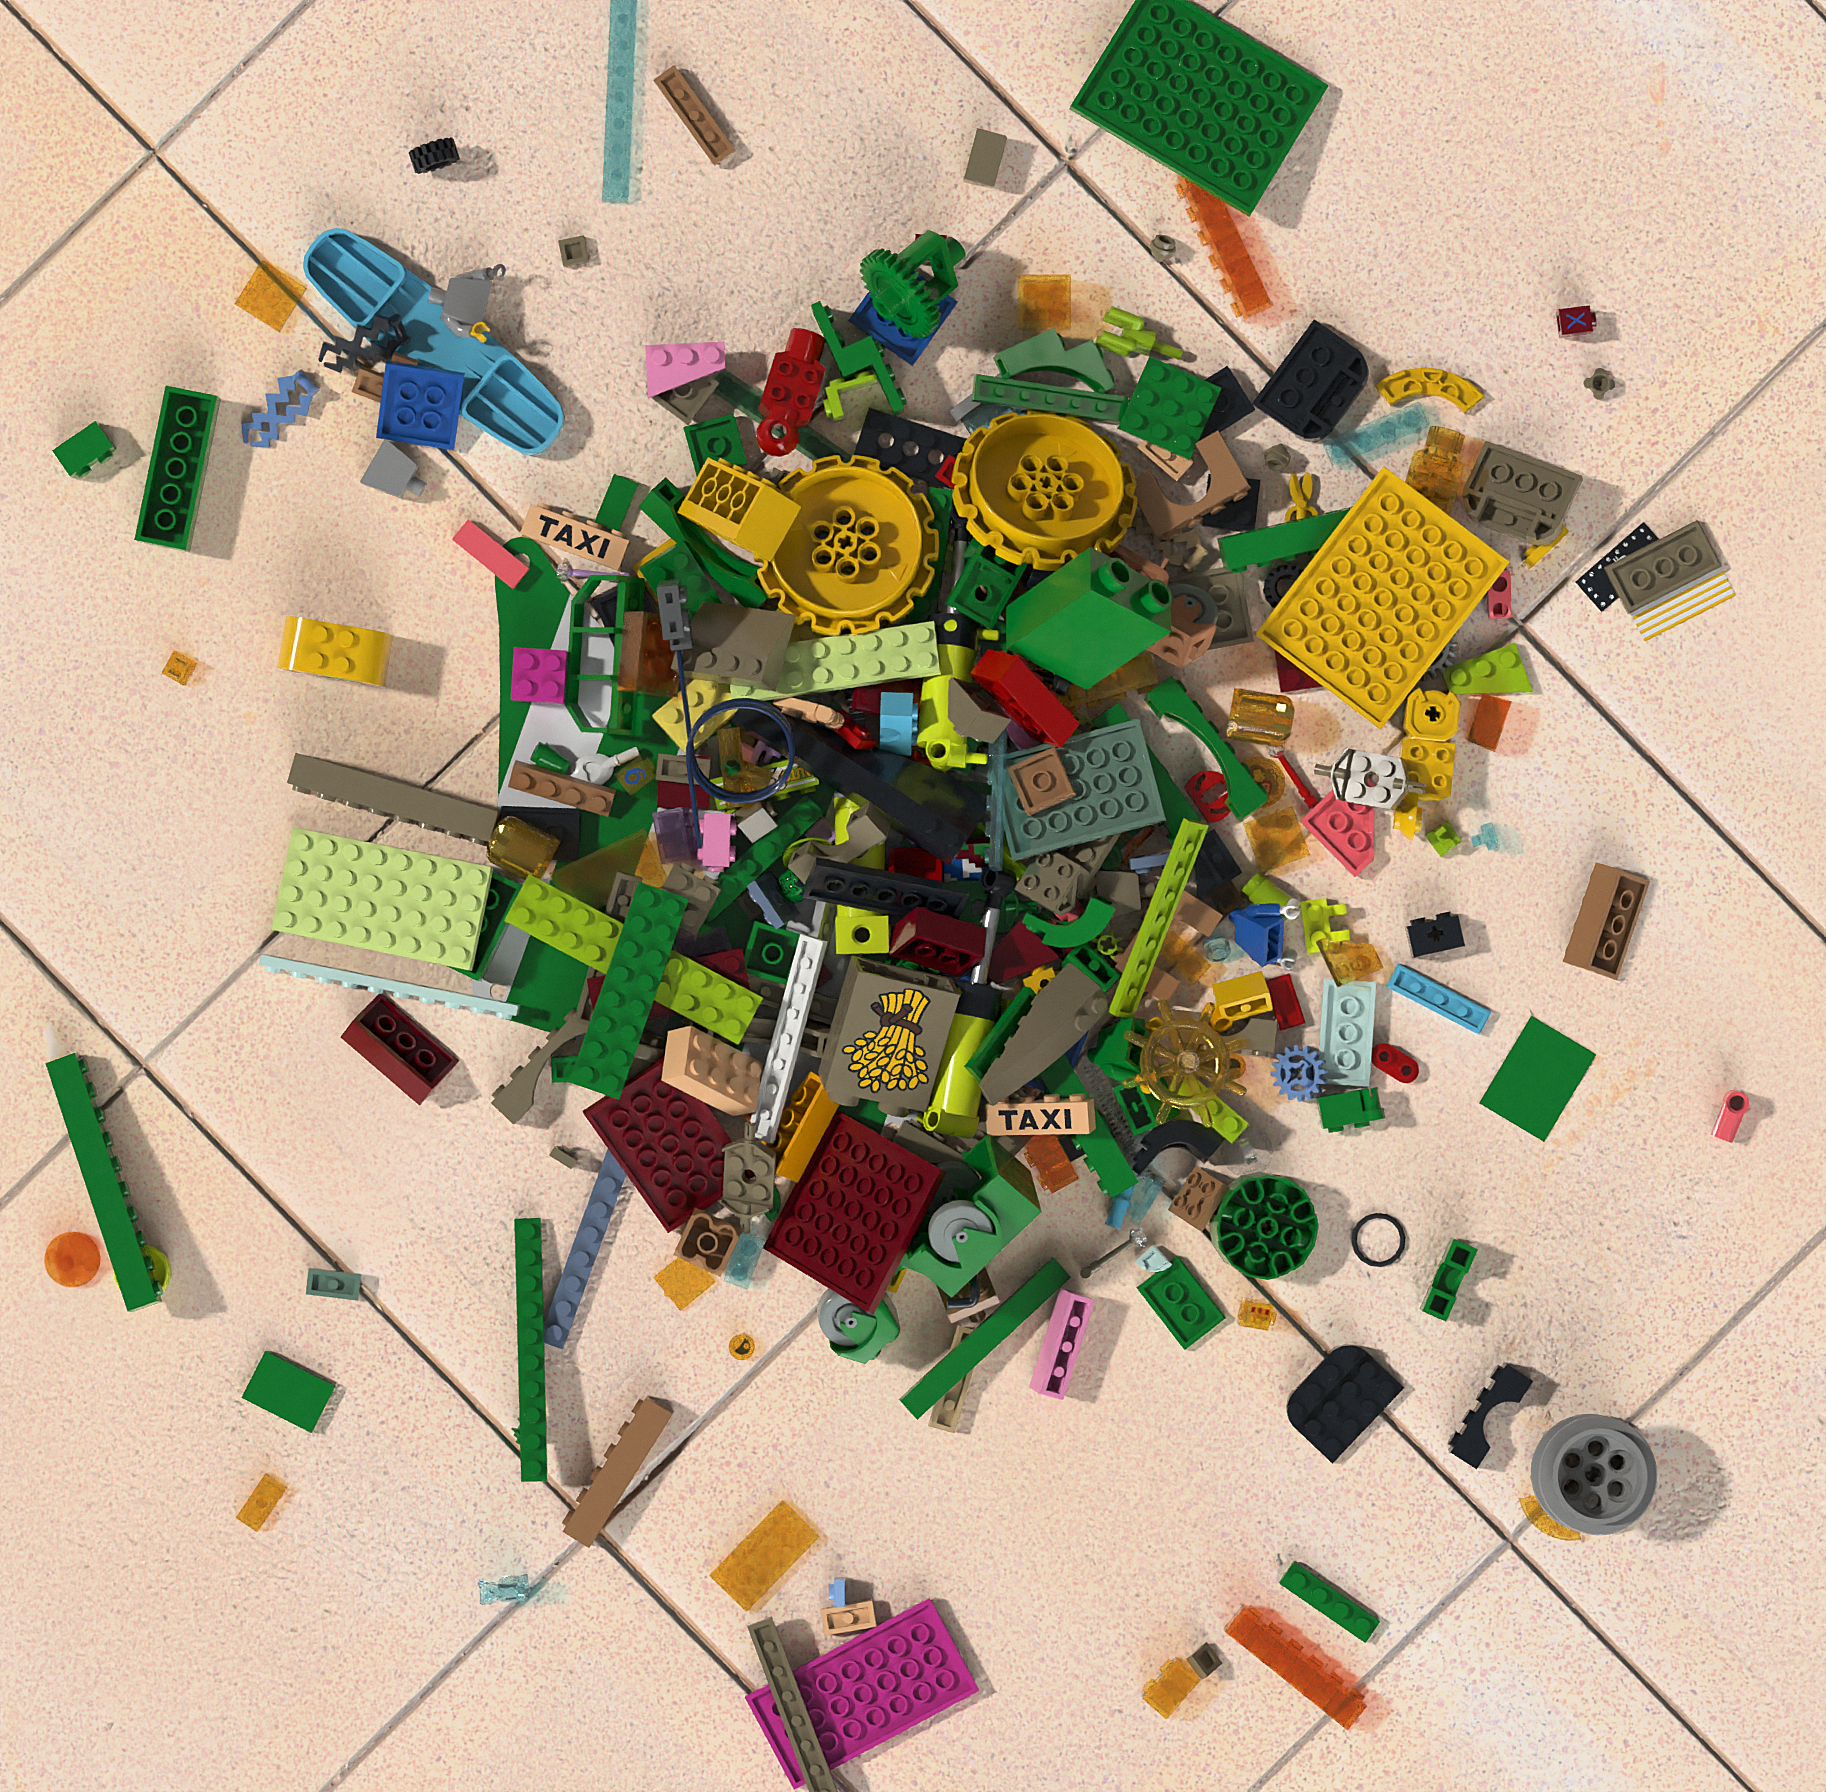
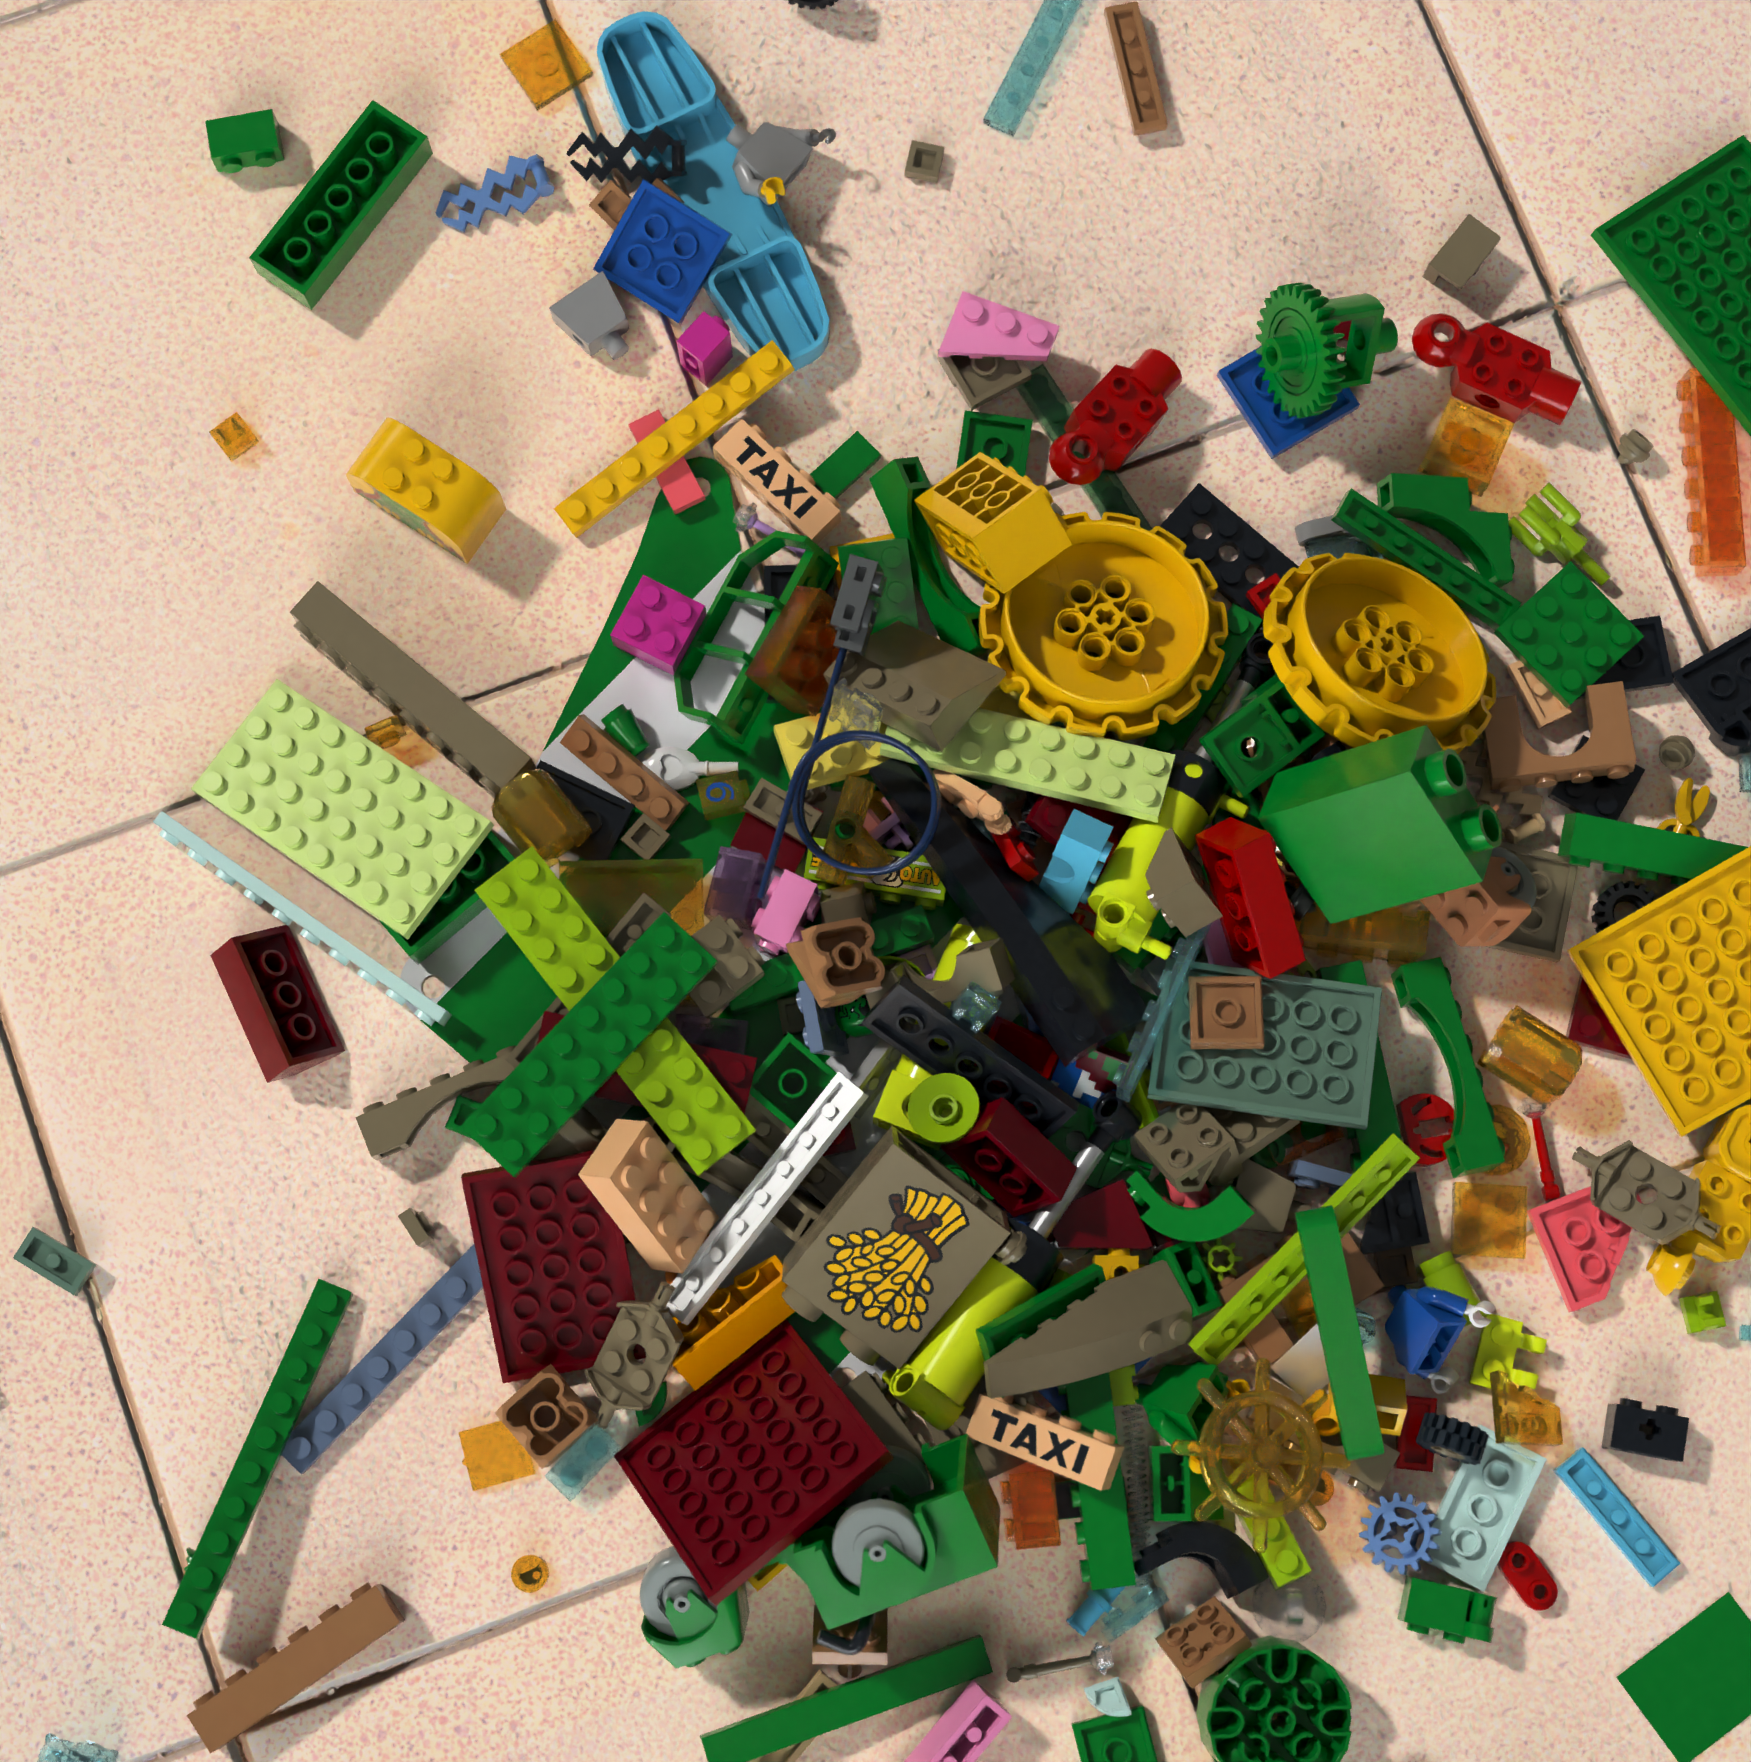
camera: 25 degrees right, 10 degrees down
(386, 832) = (386, 732): none -> clear yellow plate
(482, 462) = (705, 347): none -> dark pink brick
(490, 537) = (674, 438): none -> yellow plate
(597, 827) = (645, 838): none -> dark tan plate
(707, 686) = (855, 710): none -> clear plate
(768, 862) = (838, 961): none -> medium nougat piece
(832, 403) = (1180, 442): lime bracket -> none
(859, 357) = (1213, 416): green bracket -> none
(870, 925) = (936, 1095): none -> lime dish
(872, 855) = (975, 1006): none -> clear light blue tile
(965, 1003) = (1012, 1248): none -> dark tan plate
(1042, 234) = (1496, 369): none -> red brick
(1076, 1057) = (1122, 1386): none -> lime piece
(1195, 986) = (1304, 1365): none -> white sticker
(1202, 963) = (1339, 1333): none -> green beam
(1307, 997) = (1452, 1438): none -> black wheel

